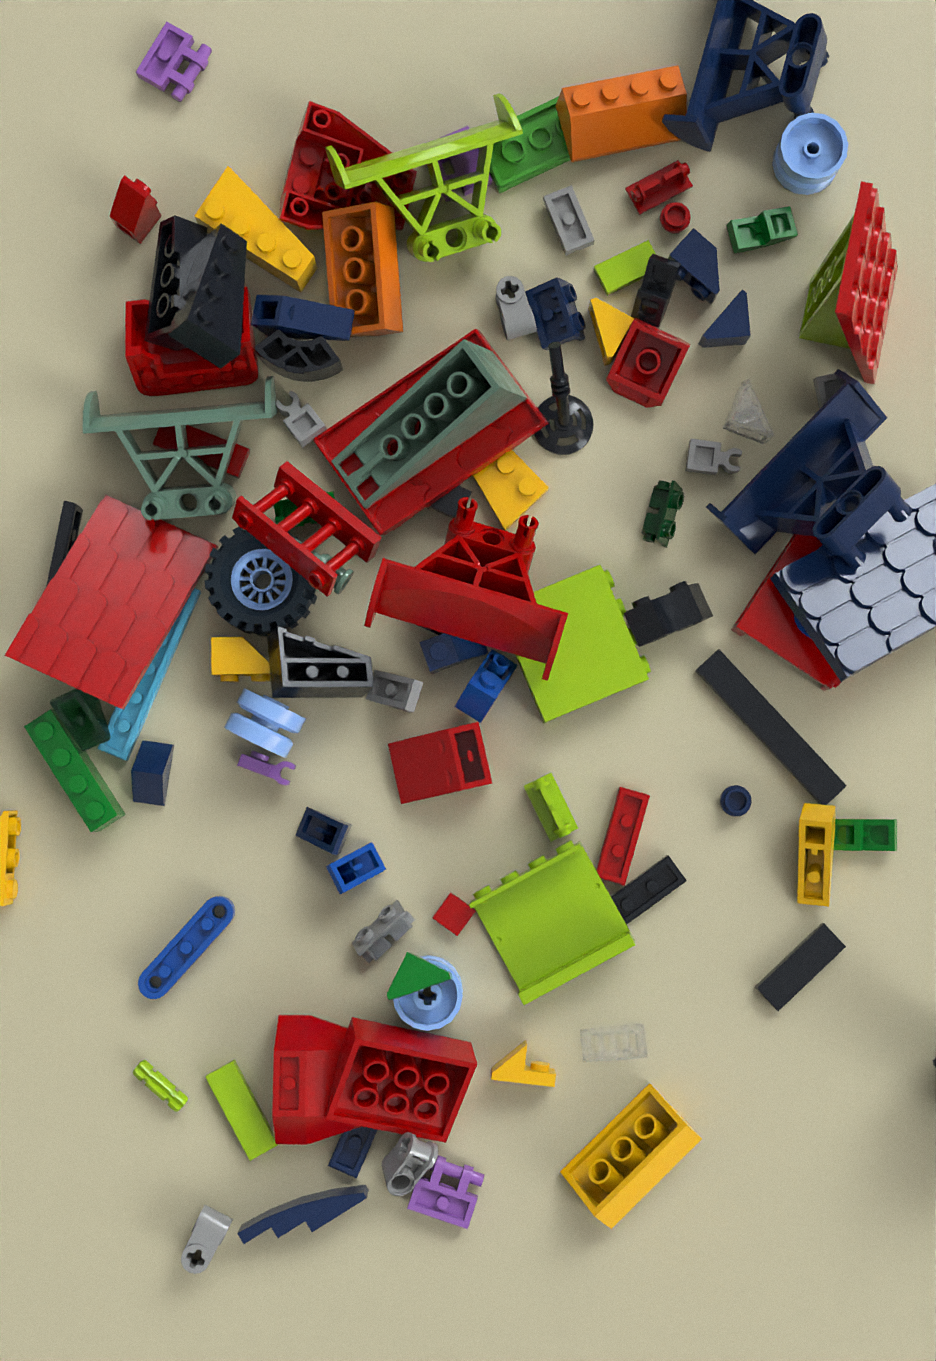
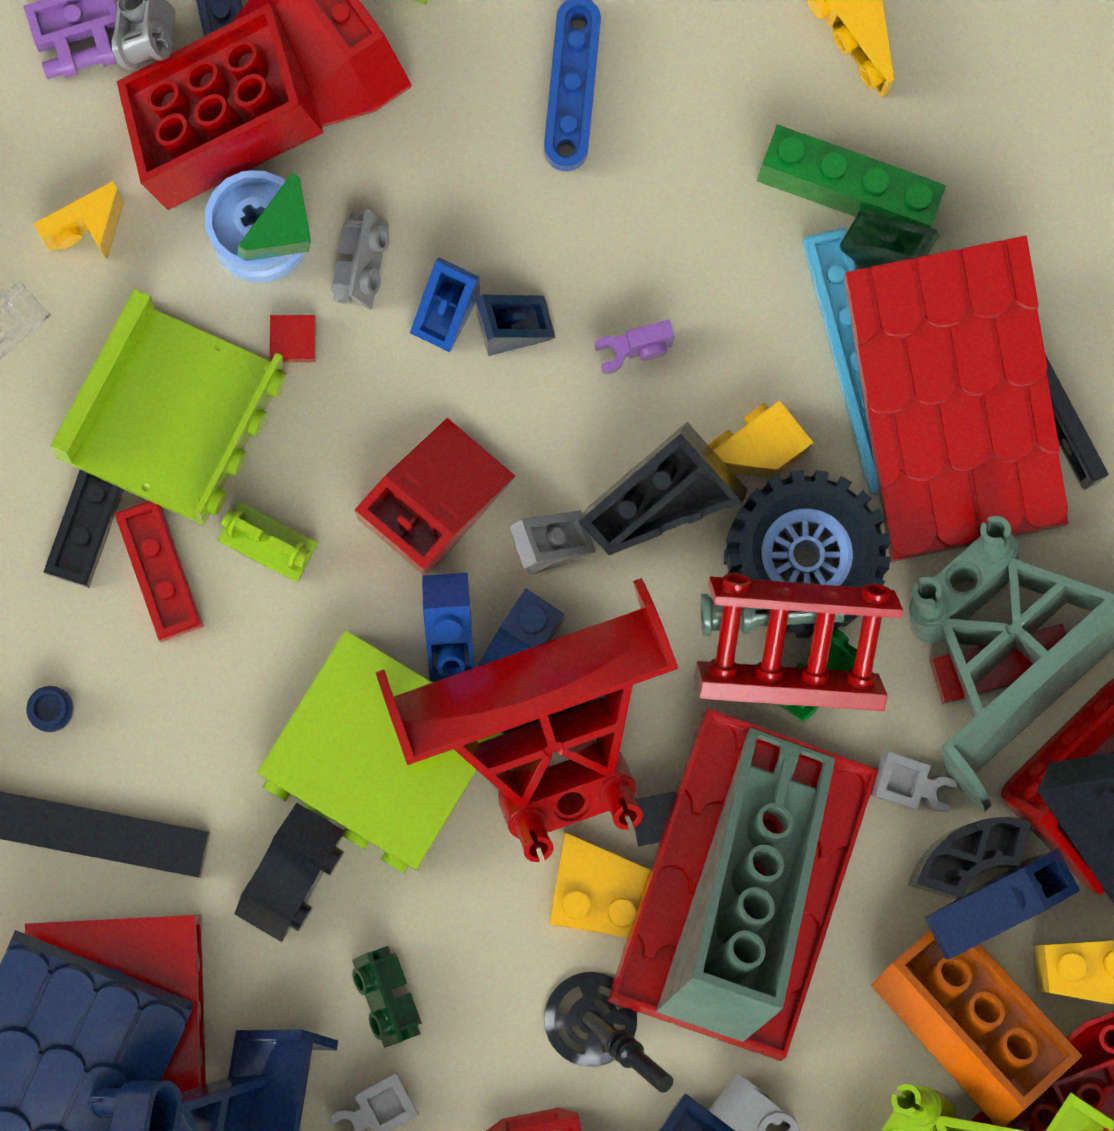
camera: 135 degrees right, 5 degrees down
(152, 773) = (763, 247): dark blue slope -> none
(265, 722) = (673, 388): light blue wheel -> none

